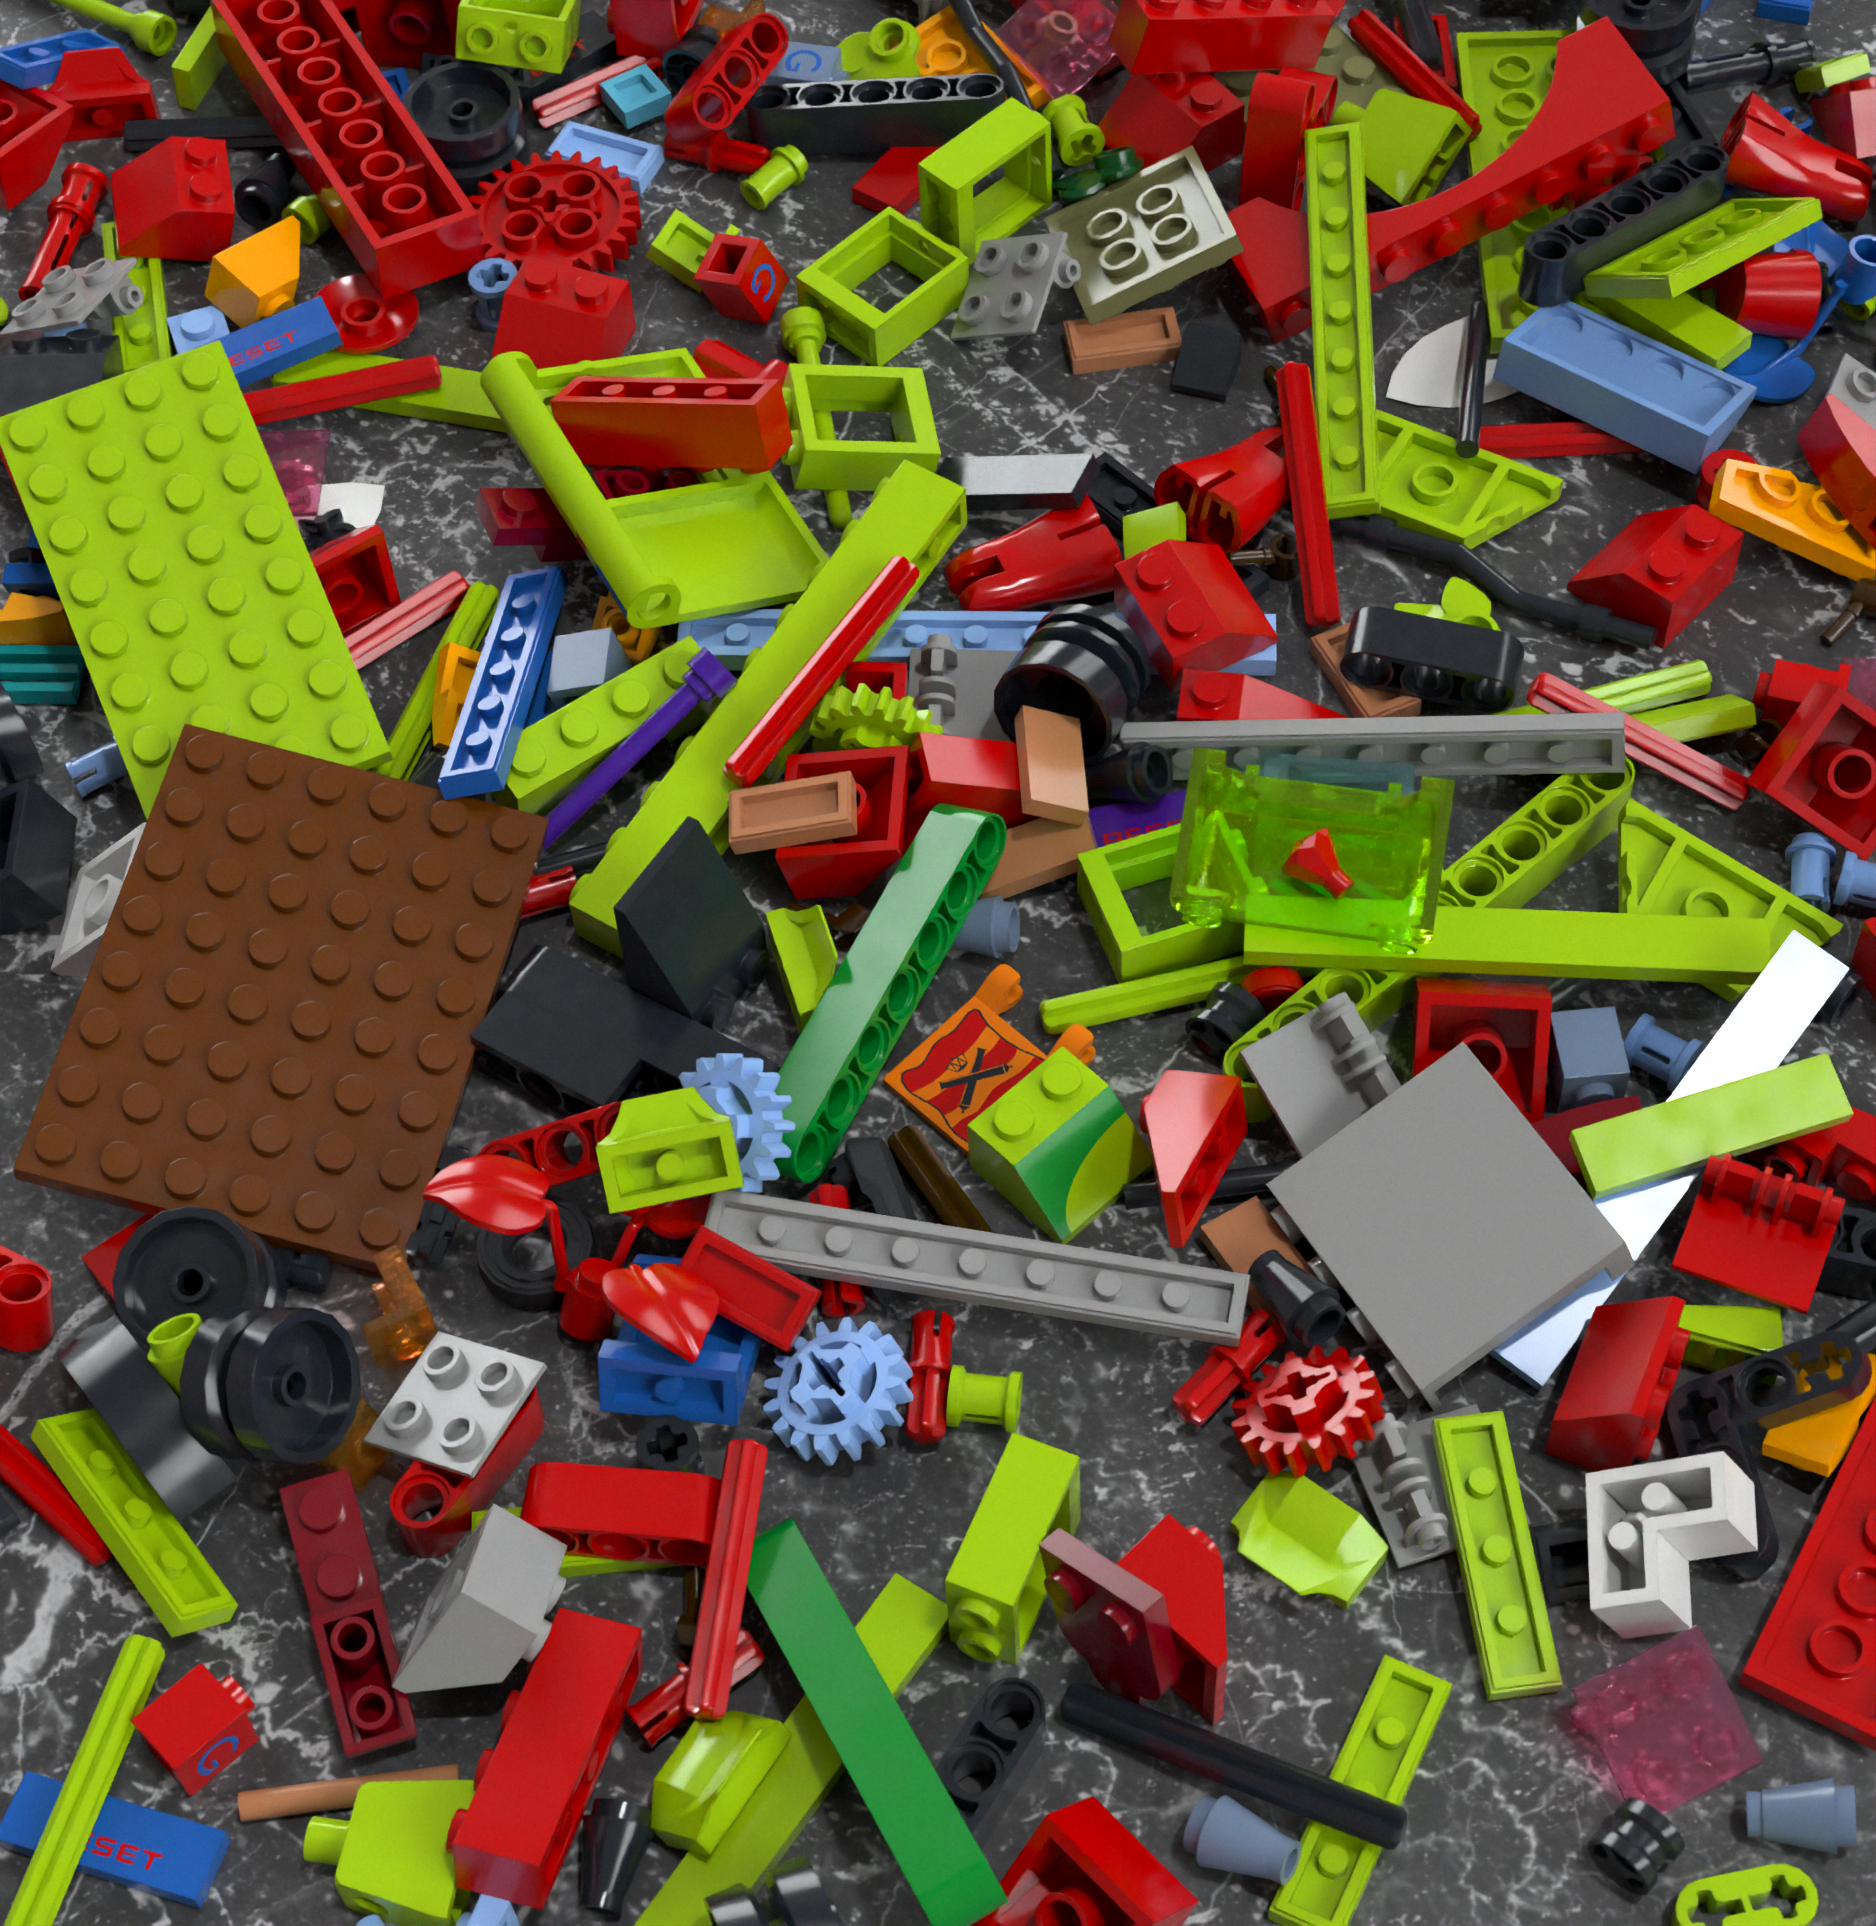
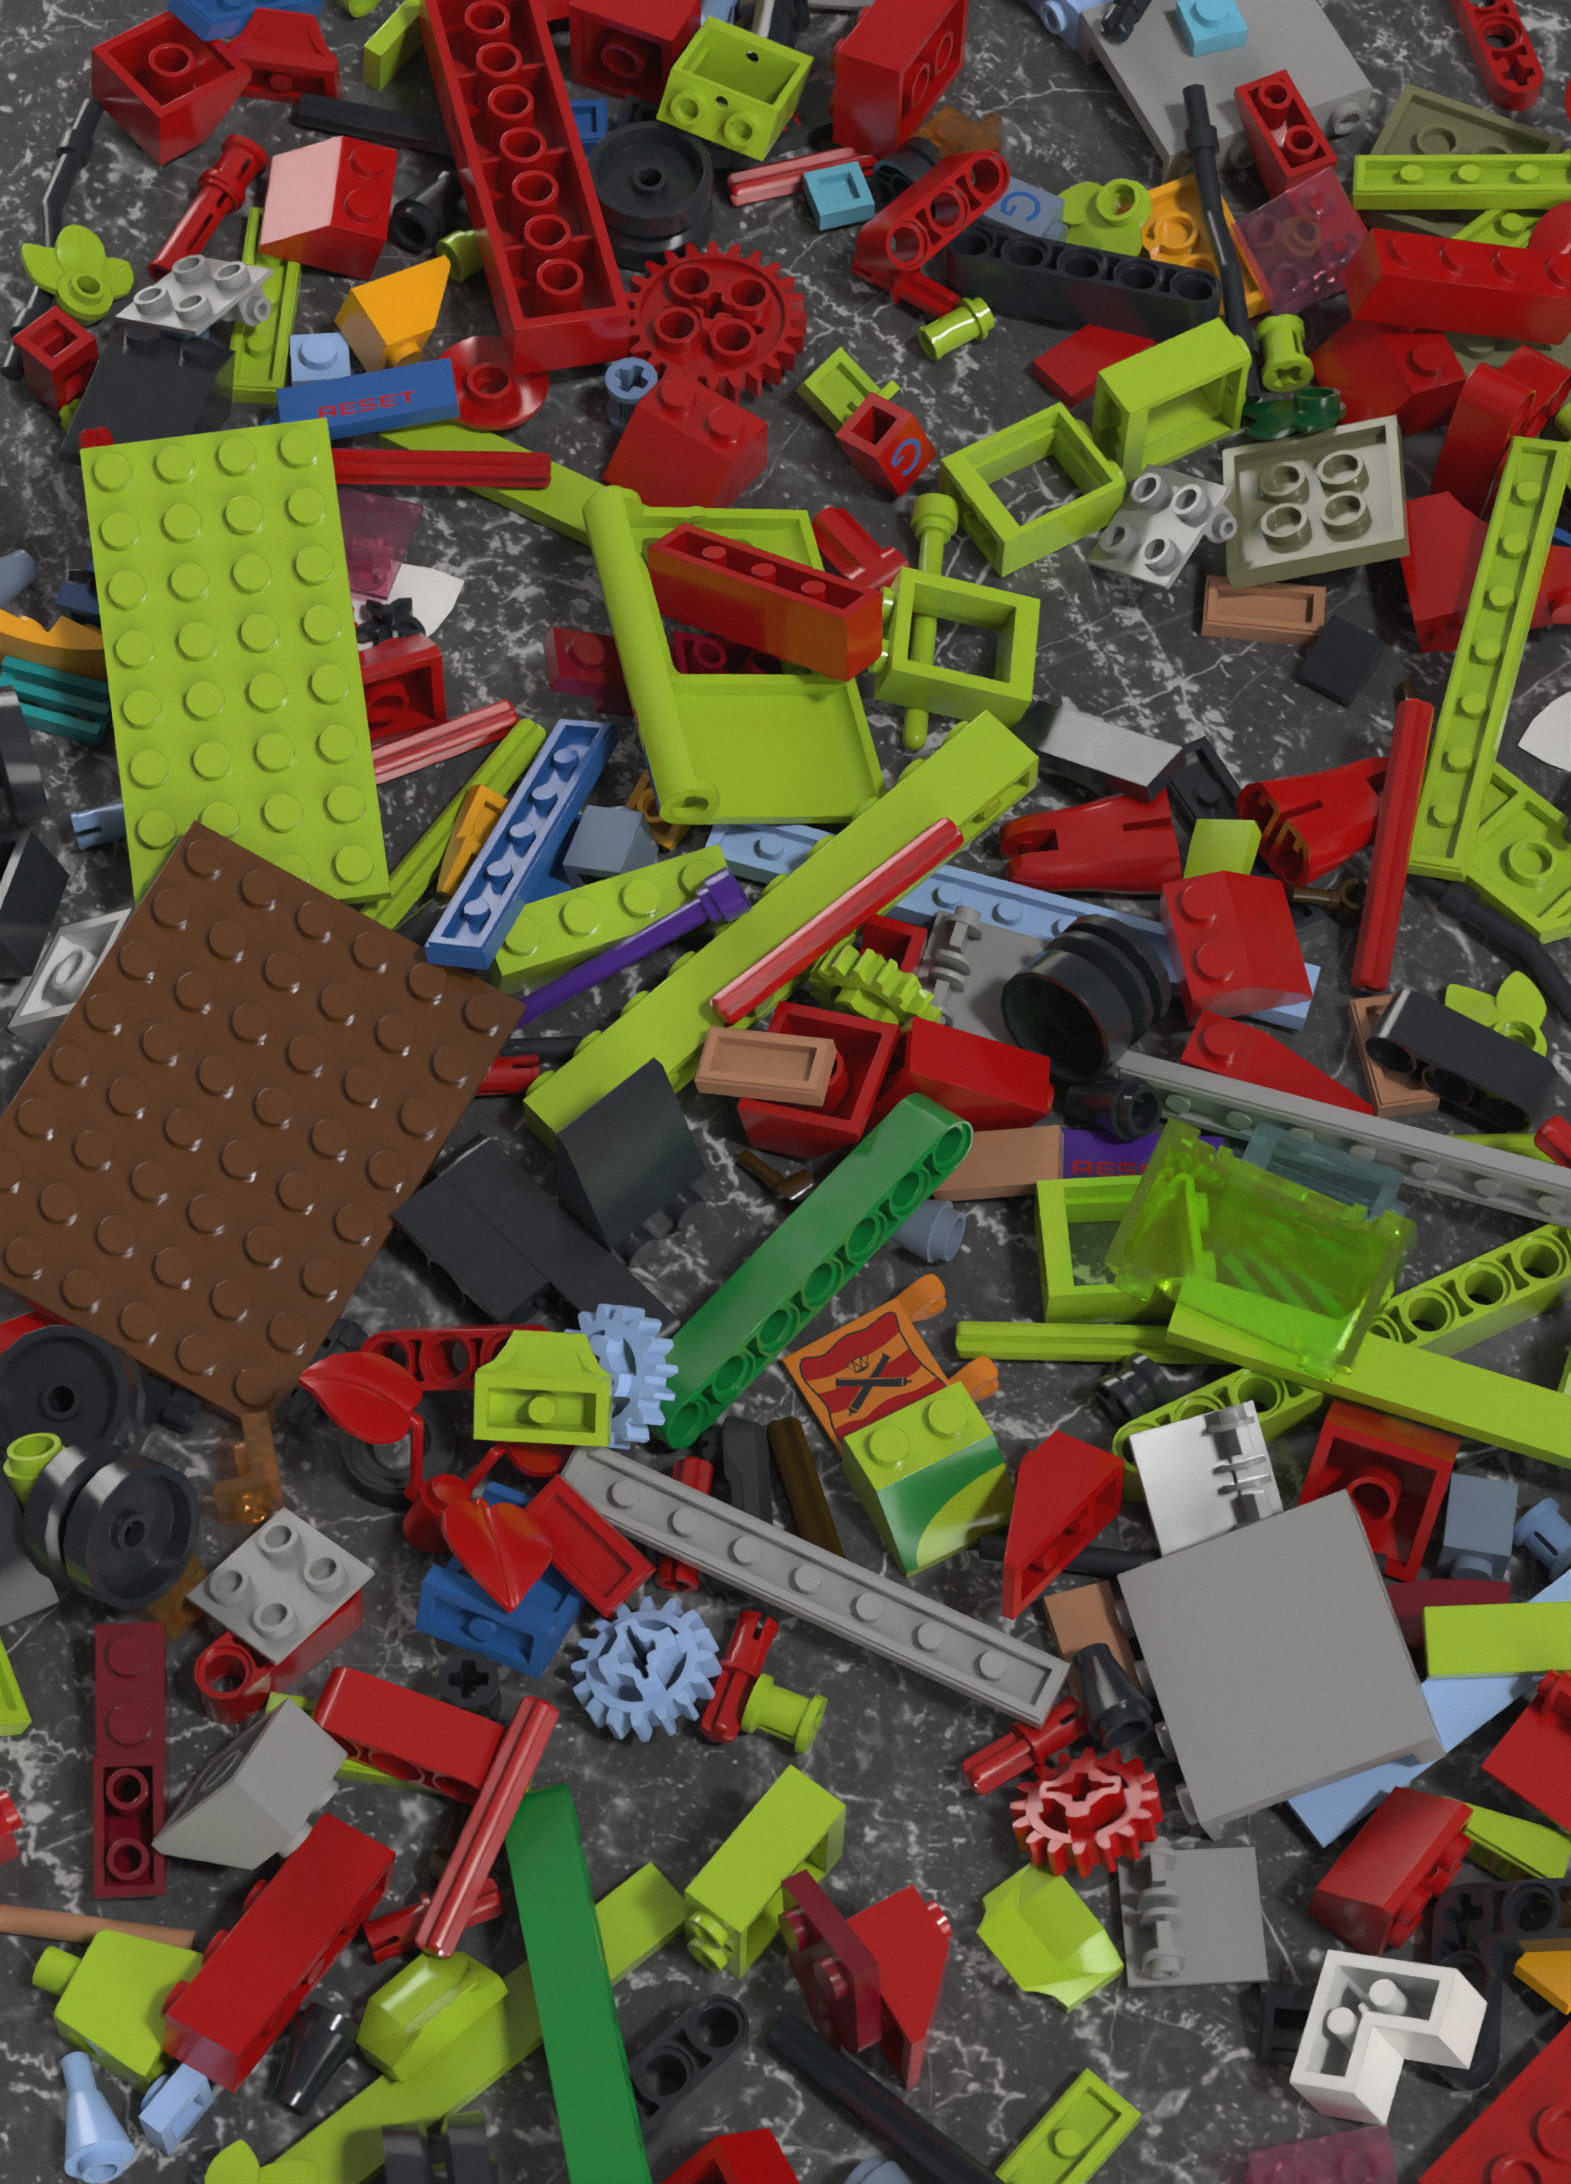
camera: 10 degrees right, 5 degrees up
(632, 157) = (812, 265): light blue tile -> none
(803, 957) = (738, 1216): lime slope -> none
(1051, 765) = (1038, 1080): nougat tile -> none
(1272, 985) = (1189, 1370): red tile -> none
(1316, 862) = (1263, 1260): red rock -> none
(1496, 1556) = (1222, 2001): lime tile -> none

